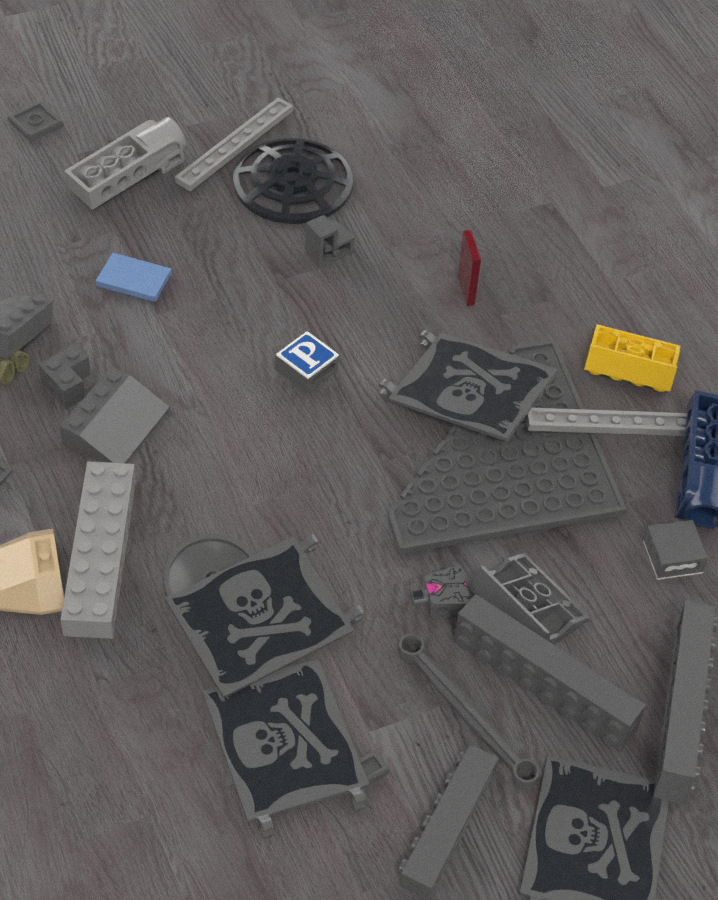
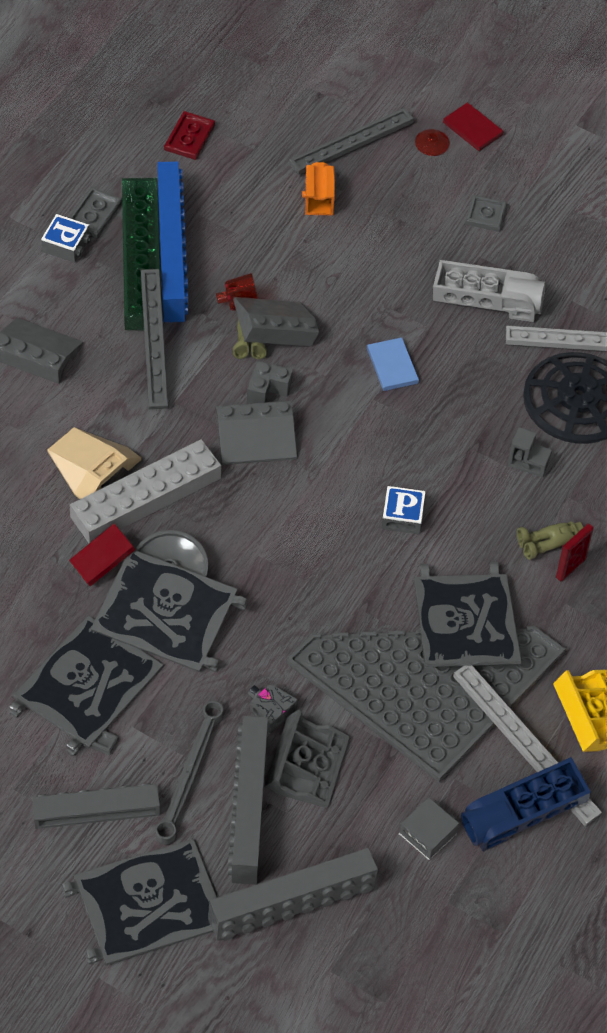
camera: 55 degrees right, 5 degrees up
(146, 629) = (102, 555): none -> dark red tile
(428, 273) = (556, 534): none -> olive piece

